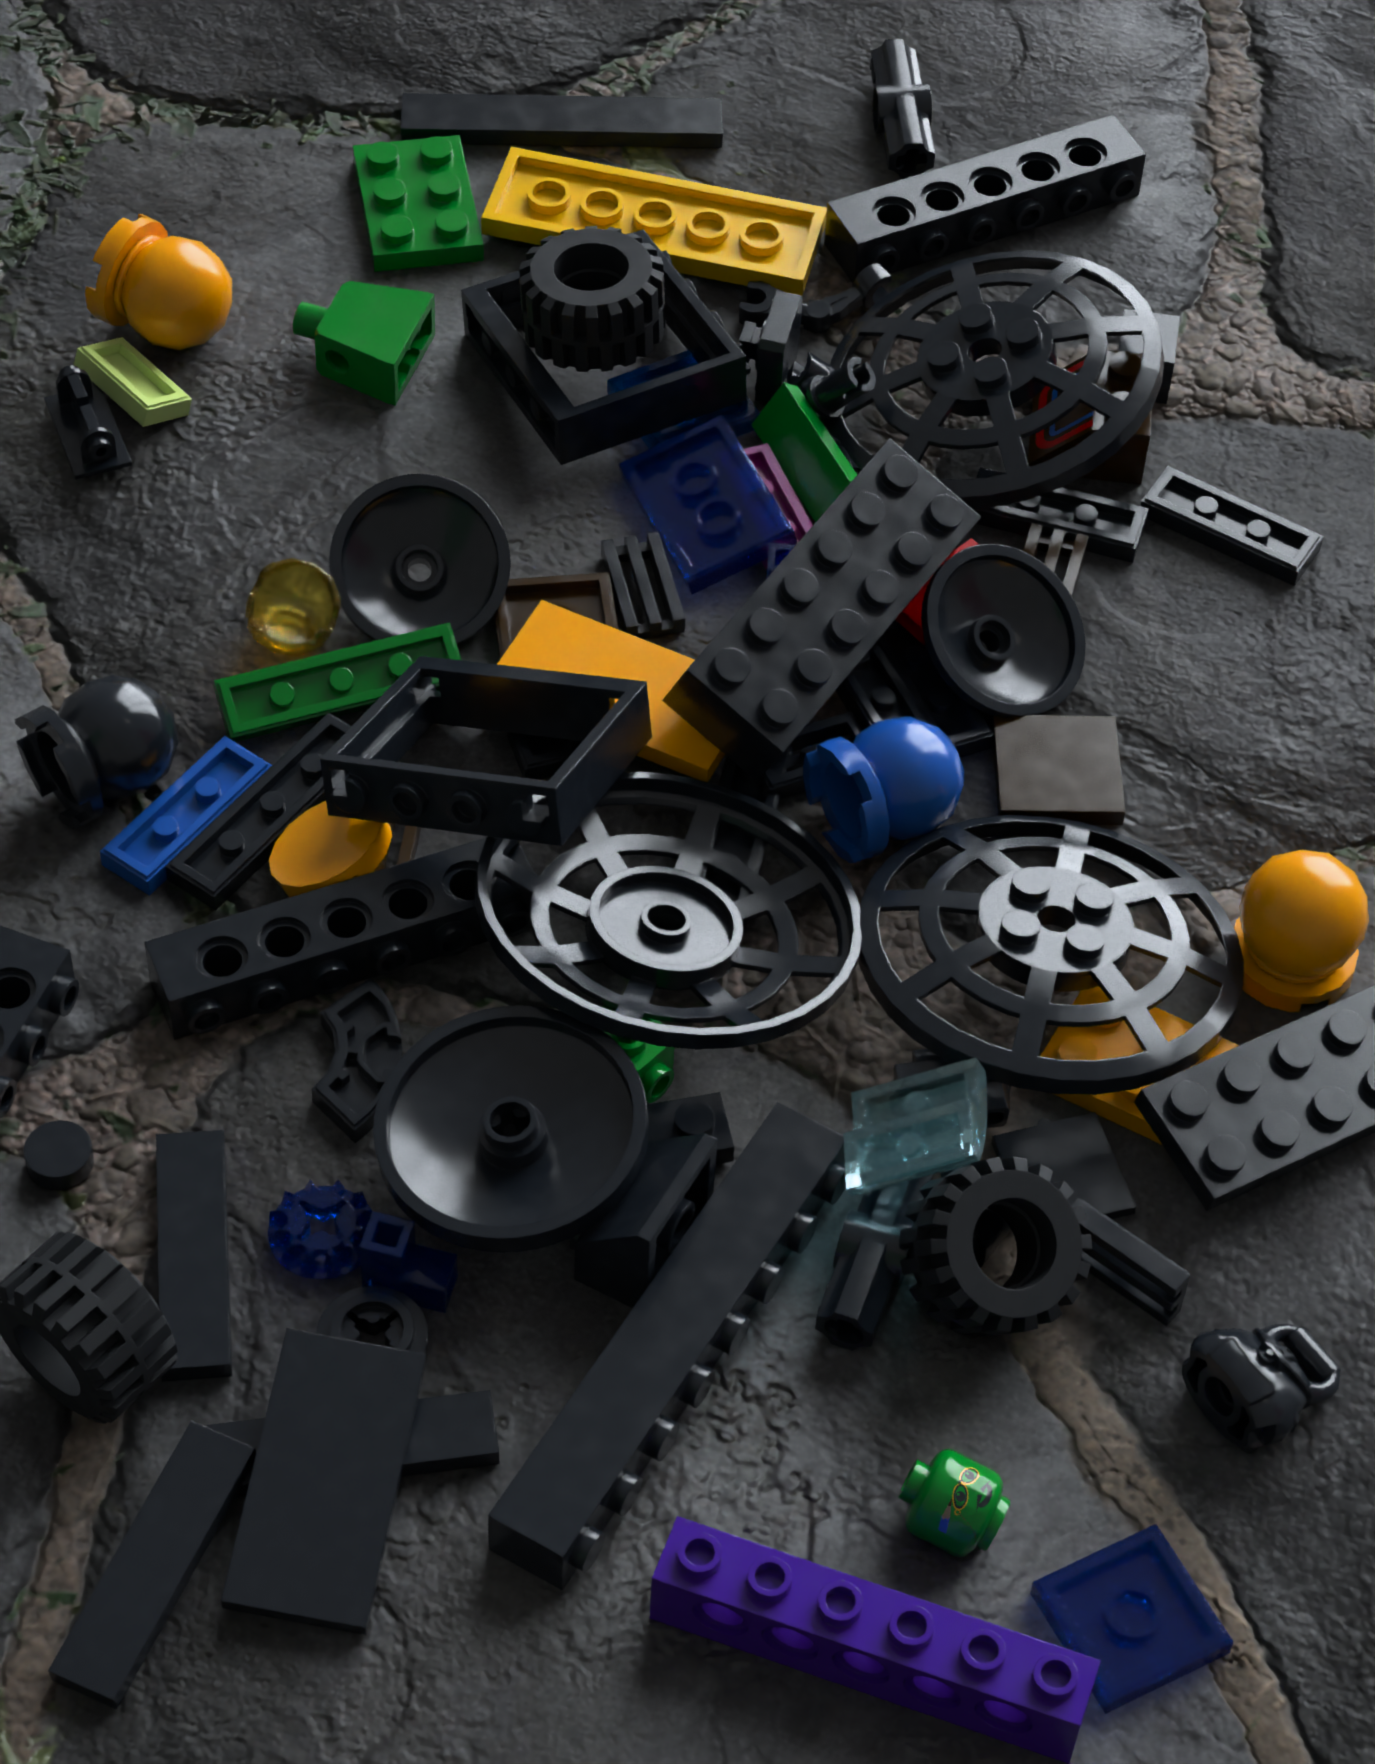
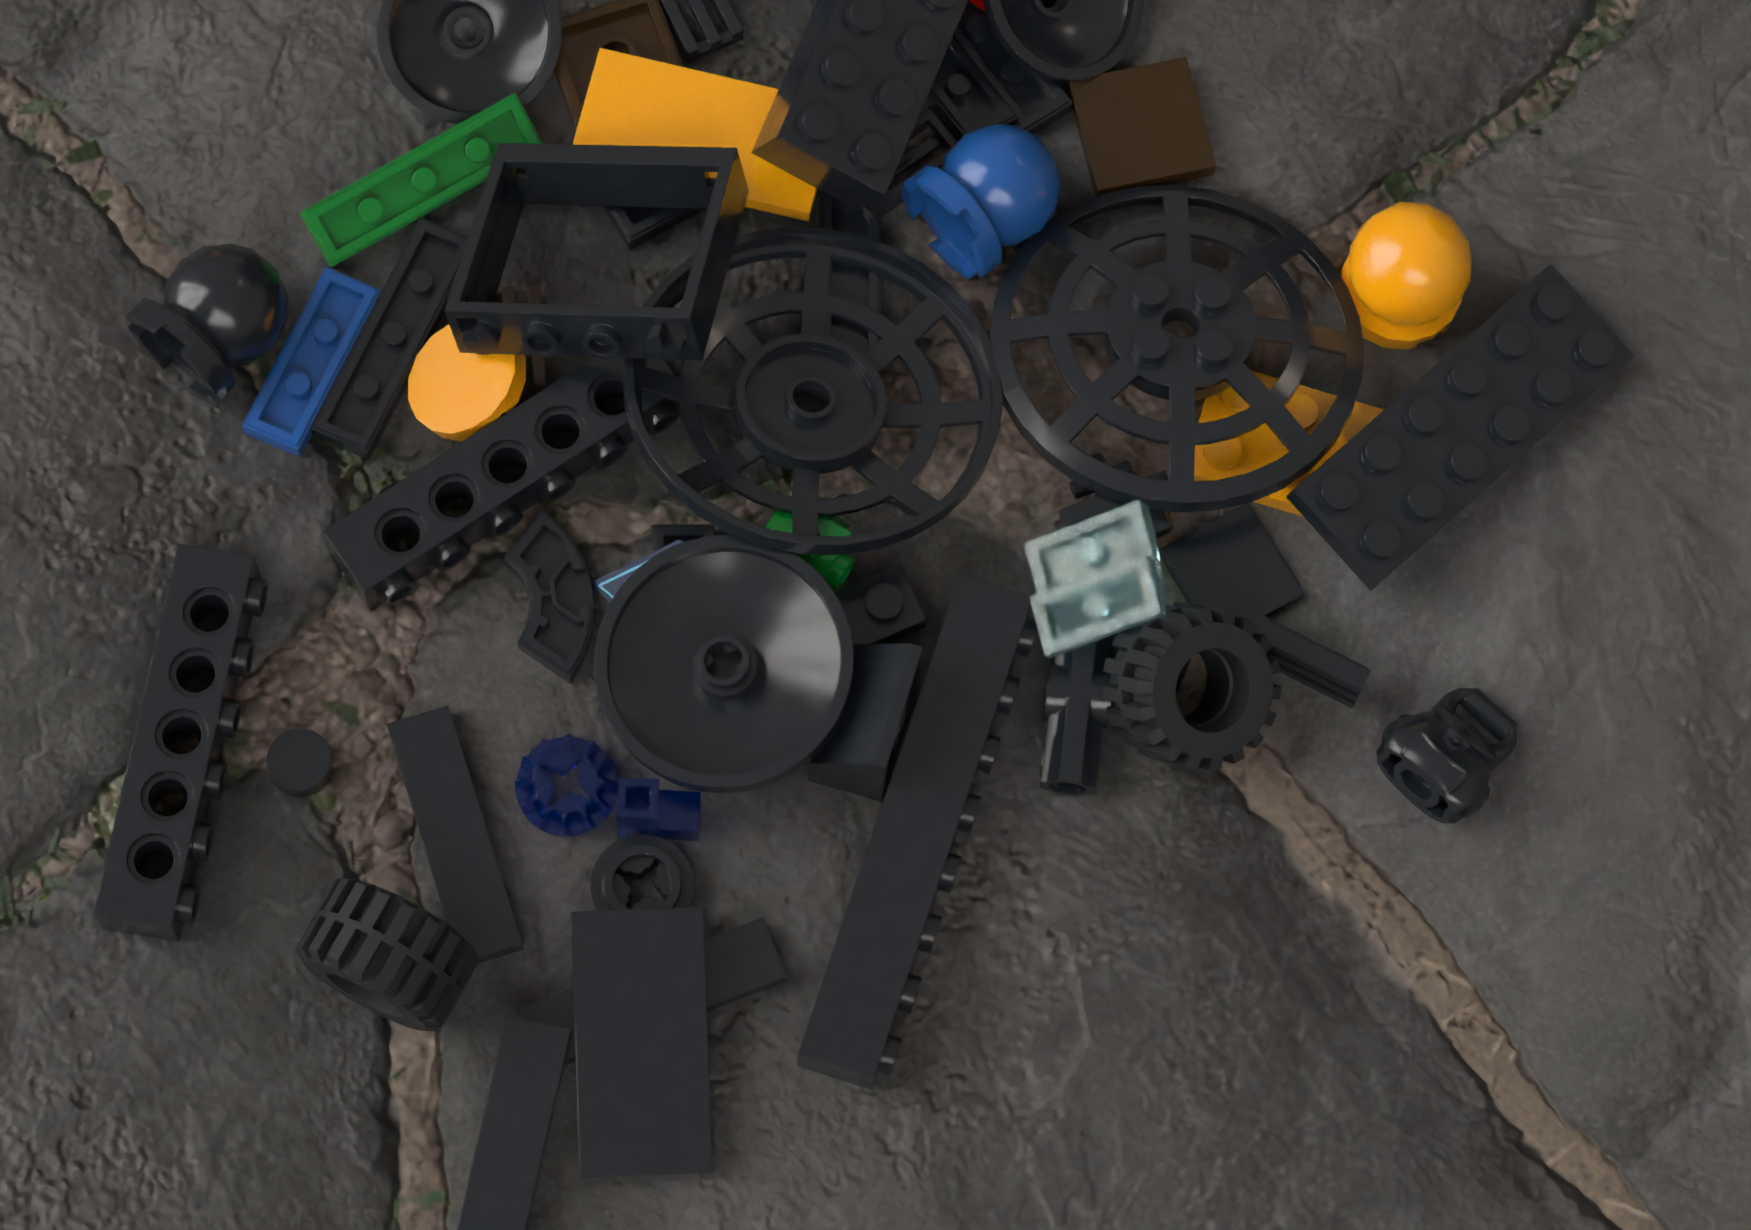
camera: 15 degrees left, 20 degrees up
(292, 607) = (353, 107): clear yellow hair -> none
(873, 1639) = (1158, 1086): dark purple brick -> none
(954, 1503) = (1201, 937): green head -> none
(1134, 1614) = (1373, 1006): clear blue tile -> none

